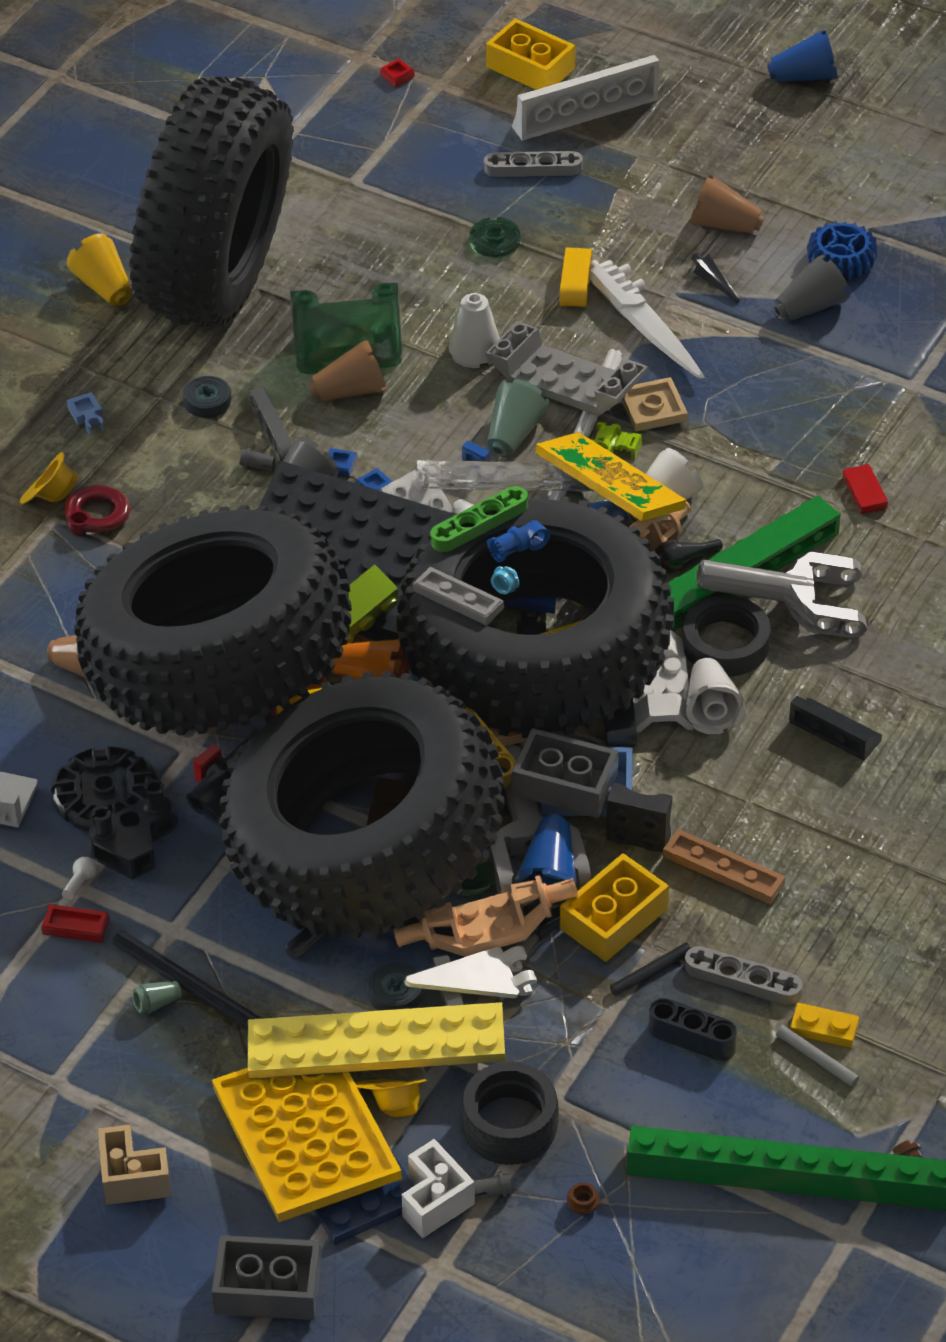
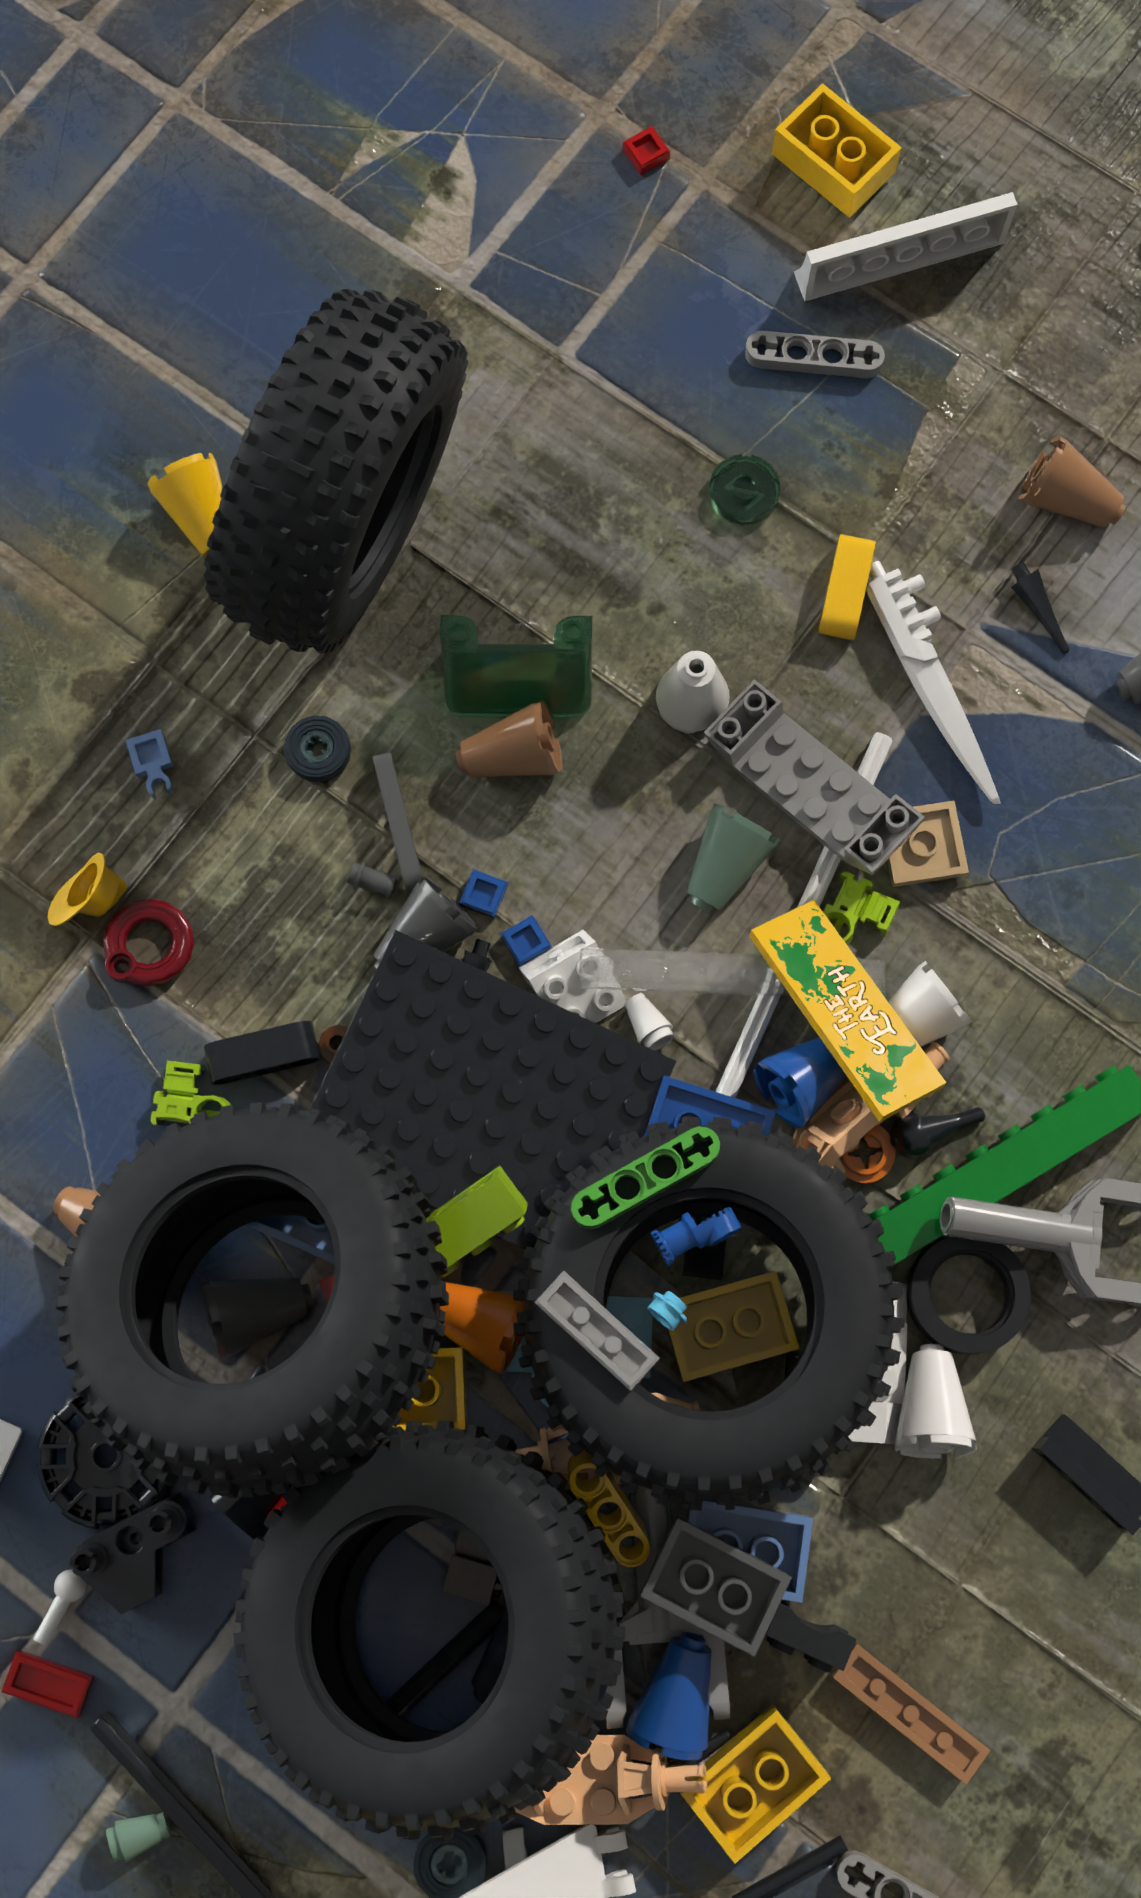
camera: 10 degrees right, 30 degrees up
(473, 452) = (667, 919): blue tile -> none

